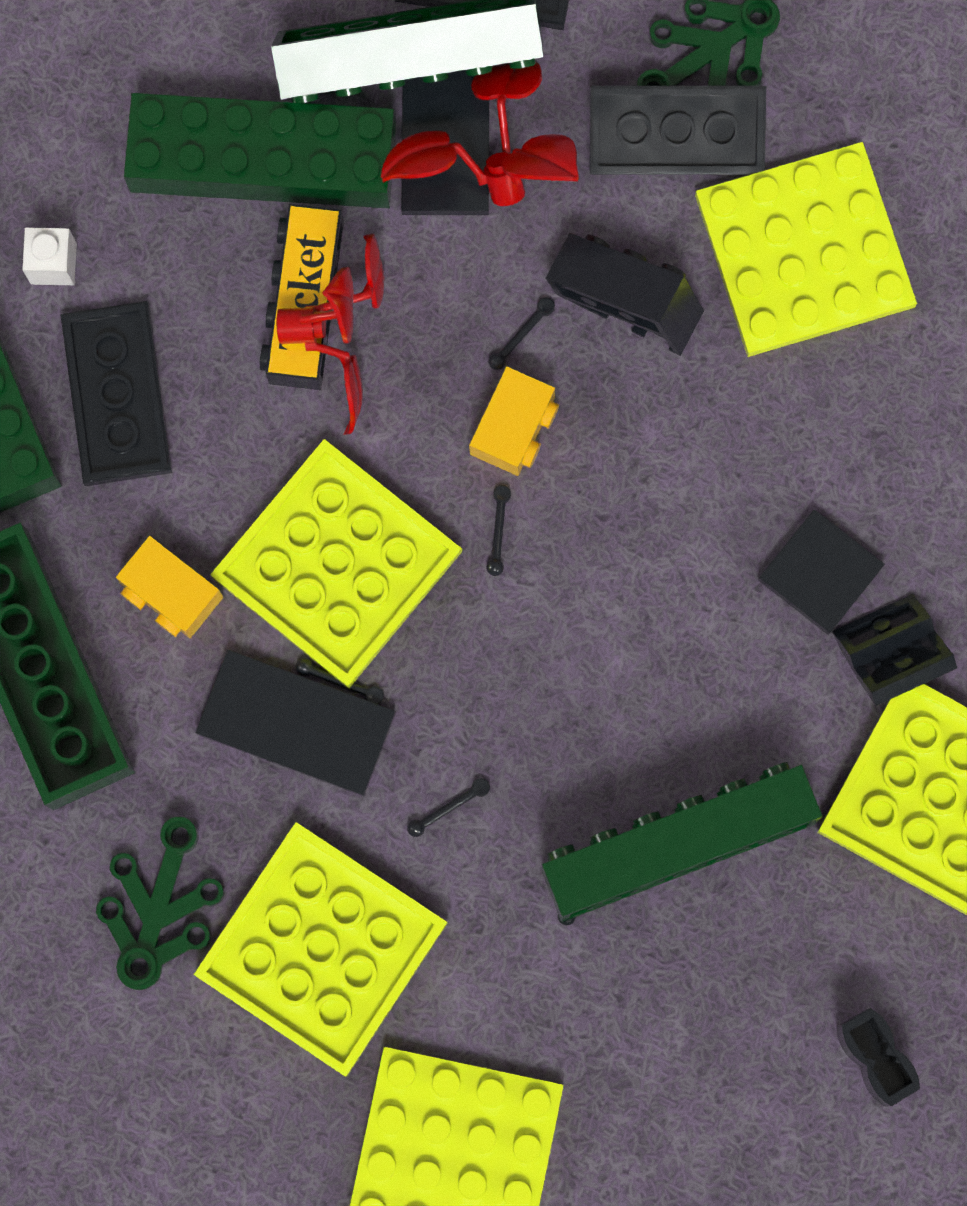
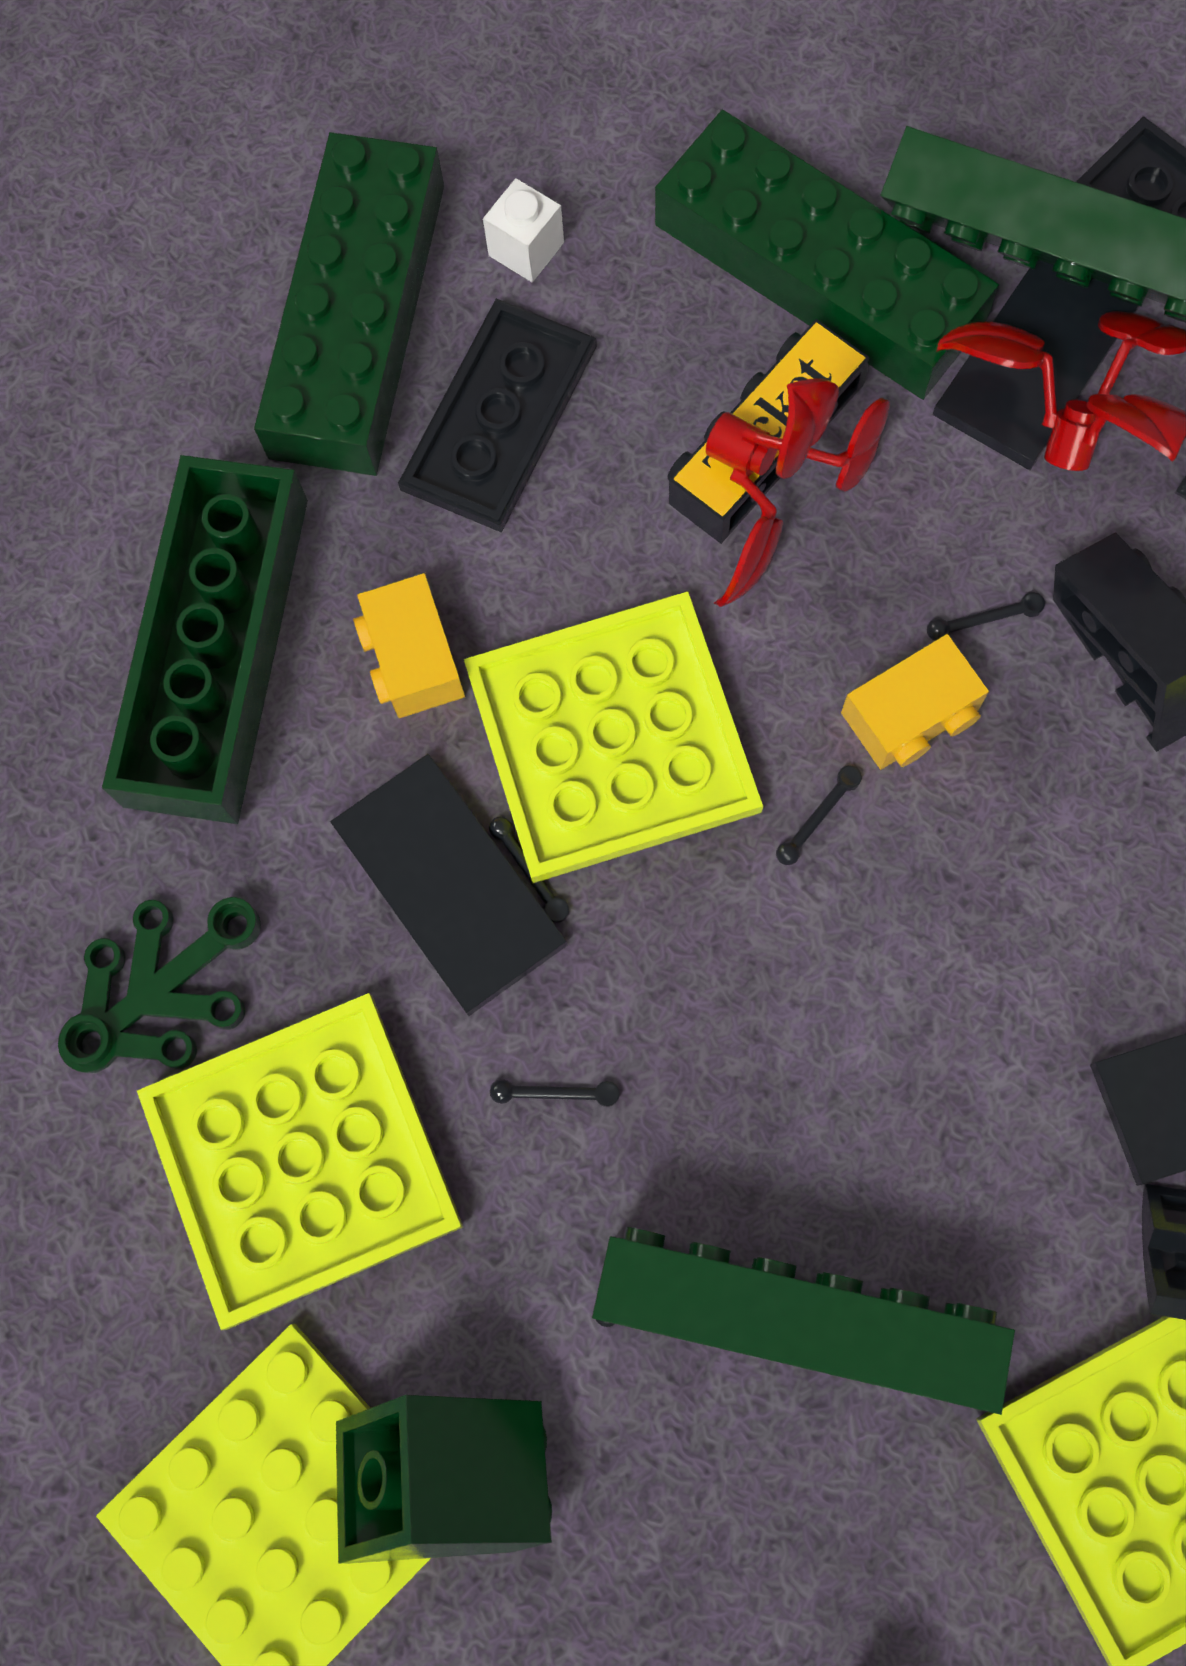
camera: 35 degrees right, 5 degrees down
(533, 1067) = (441, 1479): none -> dark green slope

